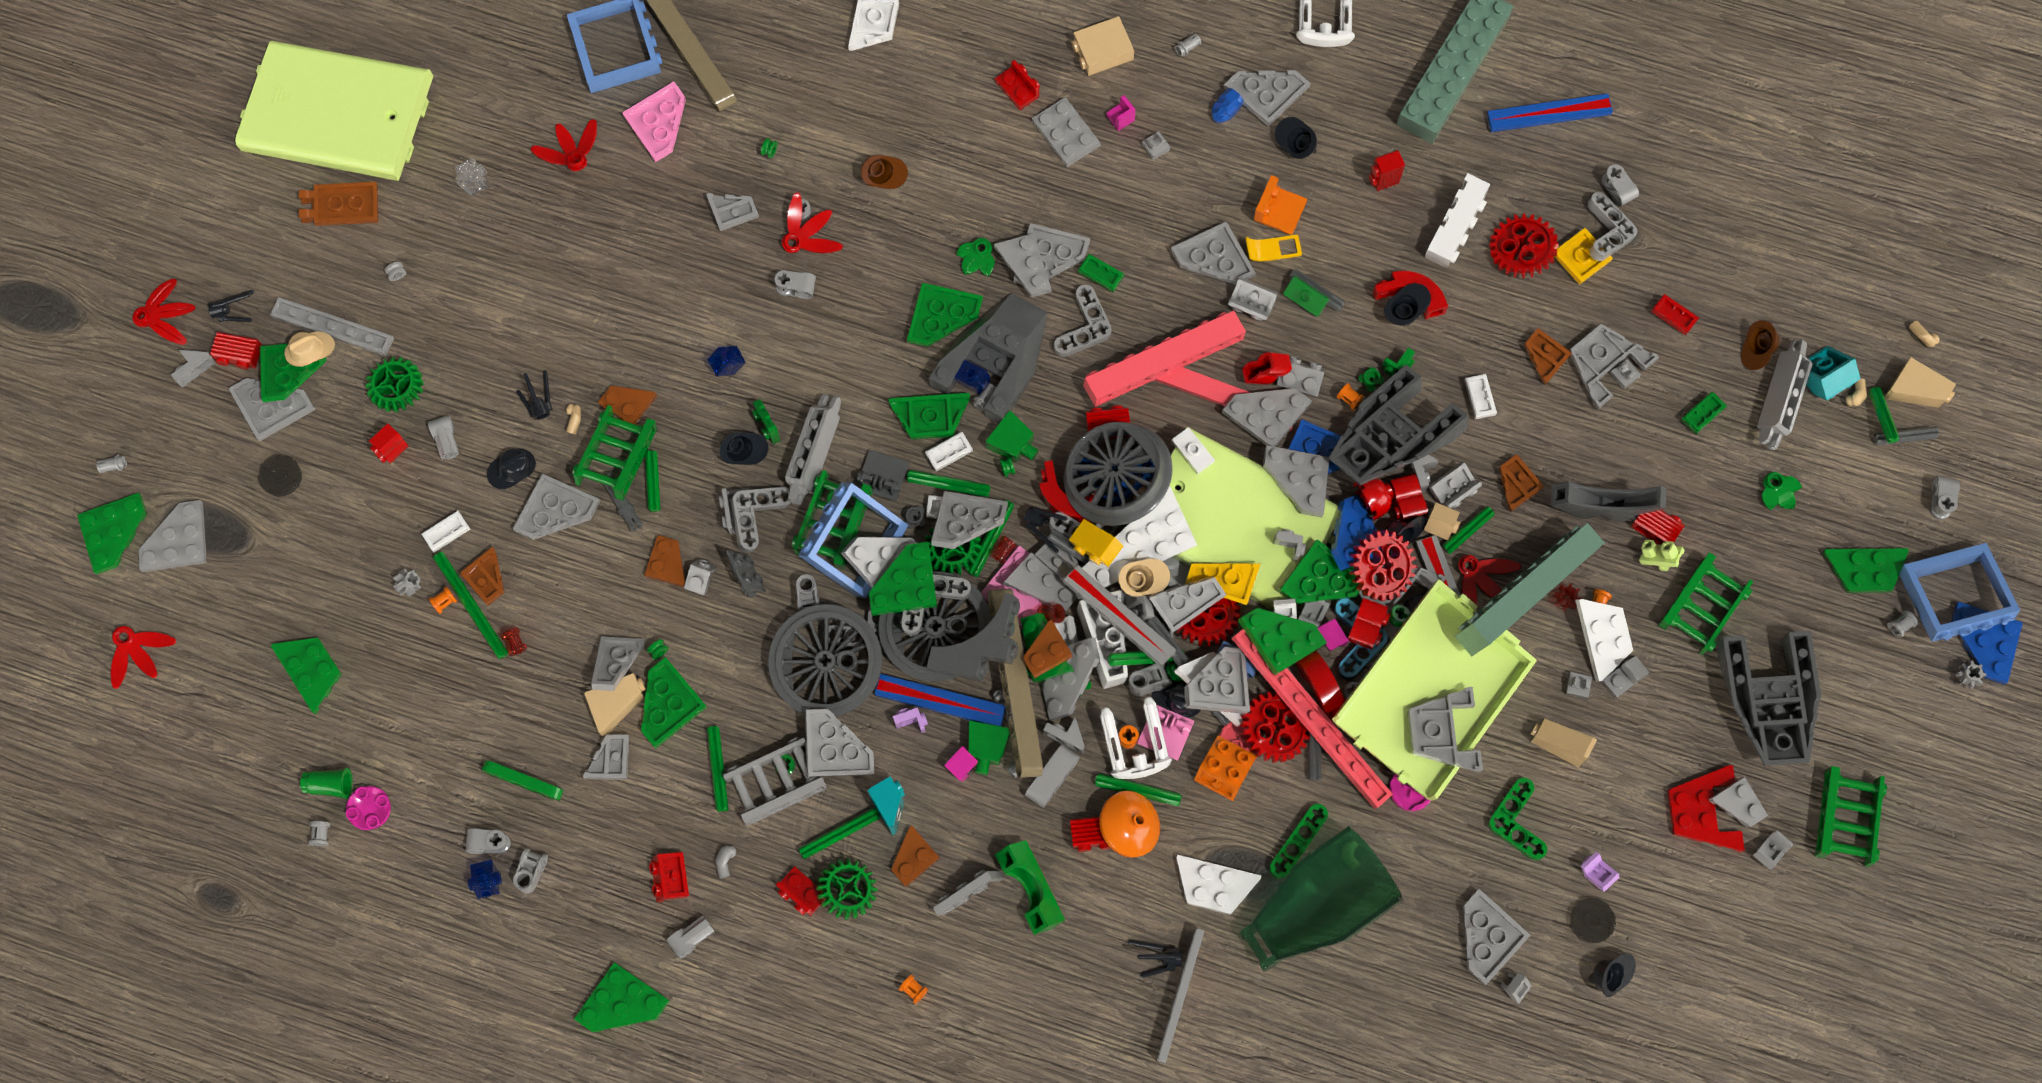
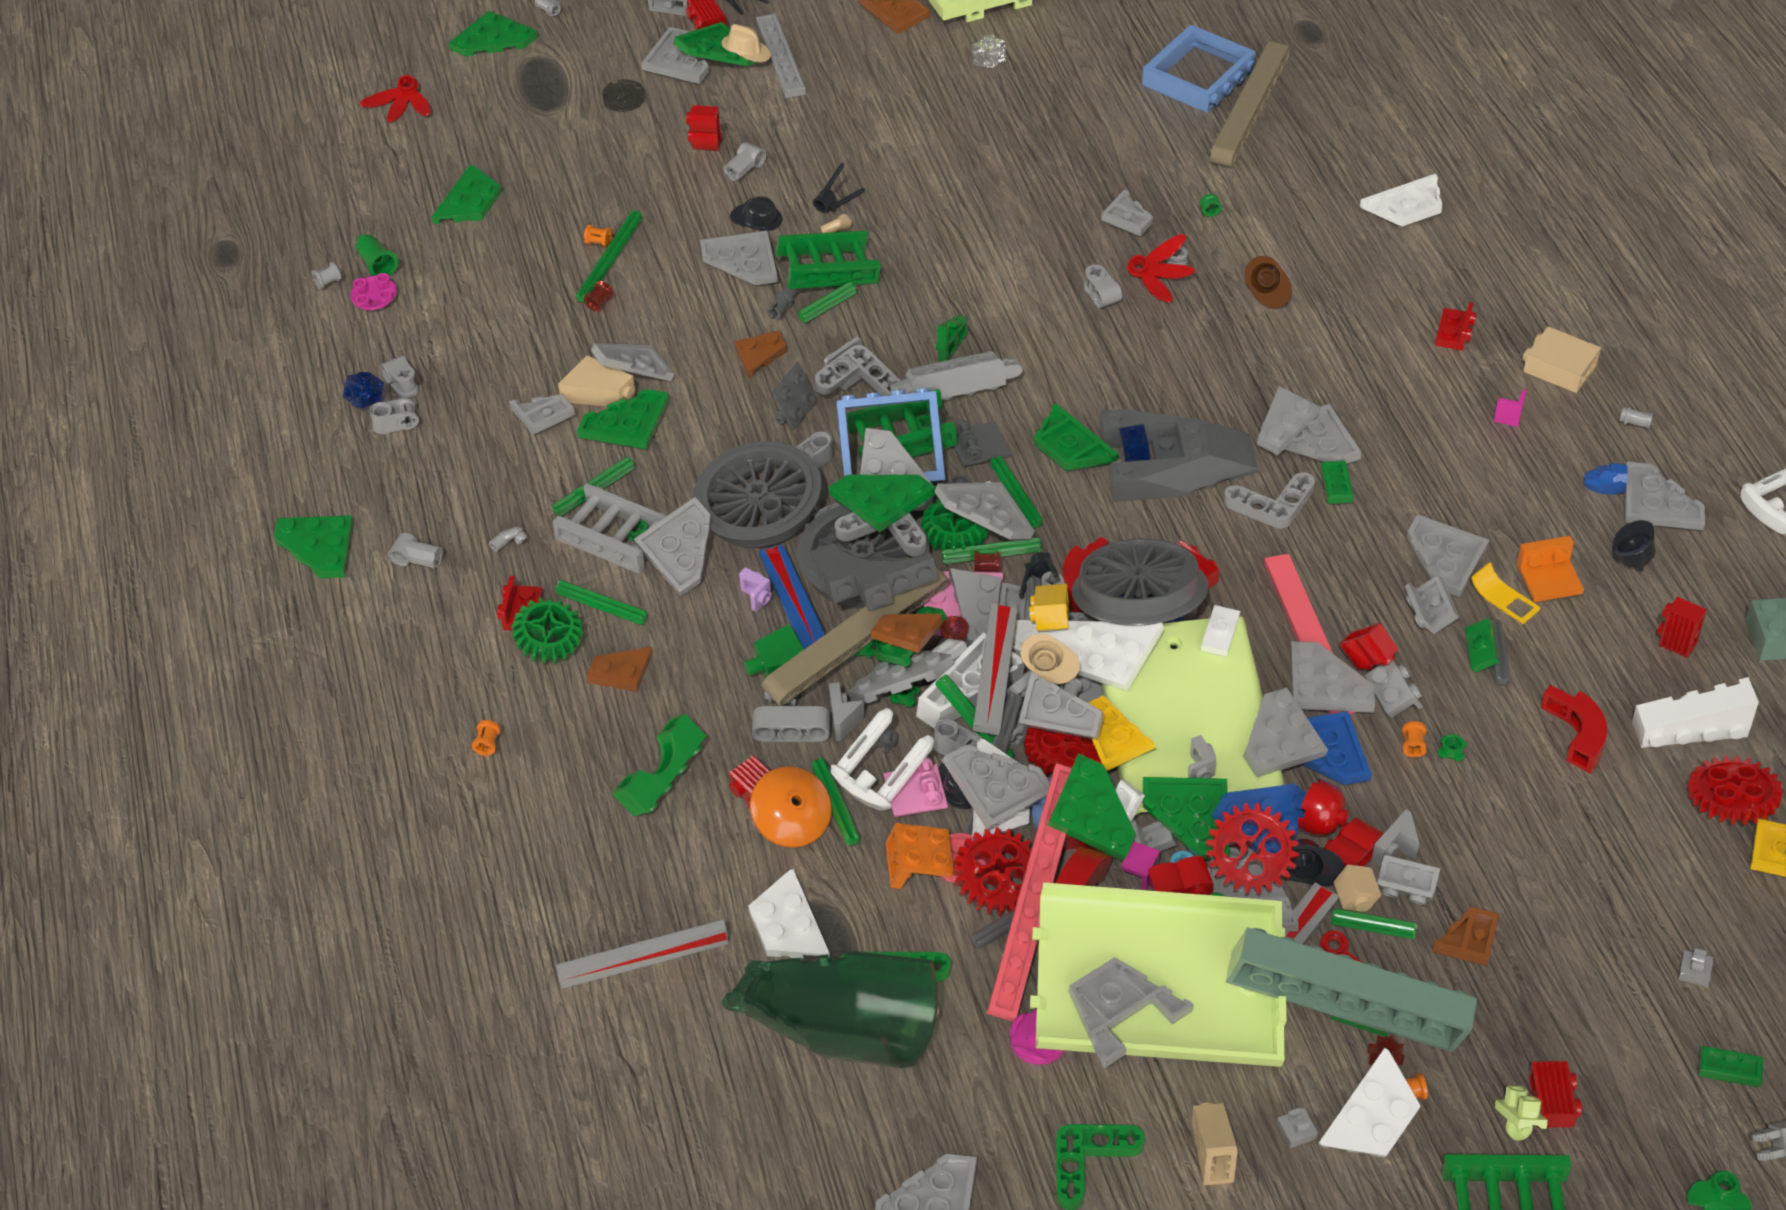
camera: 55 degrees right, 25 degrees down
(177, 540) = (516, 72): light grey plate -> none
(395, 271) = (859, 63): light grey bush -> none
(406, 582) = (594, 206): light grey gear -> none
(411, 380) = (763, 110): green gear -> none
(445, 531) = (661, 206): white plate -> none
(485, 576) = (642, 249): dark orange wing -> none
(522, 780) = (475, 368): green beam -> none
(573, 156) = (1078, 101): red plant -> none
(627, 403) = (885, 247): dark orange wing -> none
(657, 649) = (672, 385): green bush -> none
(658, 120) = (1160, 128): bright pink plate -> none
(669, 876) = (462, 507): red bracket -> none
(699, 576) = (764, 375): light grey bracket -> none
(726, 360) = (982, 281): clear blue brick -> none
(743, 448) = (911, 335): black piece -> none
(889, 802) = (655, 611): teal slope -> none
(941, 312) = (1175, 394): green plate -> none
(948, 903) = (618, 718): light grey wing -> none
(949, 451) = (1047, 473): white plate -> none
(961, 764) = (738, 643): dark pink panel -> none
(975, 259) = (1257, 390): green plate -> none
(1007, 467) = (1072, 521): green bush -> none
(1012, 439) = (1103, 508): green torso -> none
(1066, 132) = (1448, 384): light grey plate -> none
(1133, 733) = (882, 756): orange bush -> none
(1155, 145) = (1509, 452): light grey tile -> none
(1163, 358) = (1298, 568): coral brick -> none
(1170, 957) = (674, 921): black plant -> none
(1385, 439) = (1399, 778): dark grey wedge -> none
(1392, 368) = (1492, 760): green bracket -> none
(1407, 304) = (1557, 725): black piece -> none
(1480, 396) = (1530, 849): white plate -> none
(1546, 354) = (1638, 881): dark orange wing -> none
(1600, 354) = (1691, 925): light grey wing -> none
(1611, 503) = (1514, 1008): dark grey arch -> none
(1625, 677) = (1351, 1169): light grey slope -> none

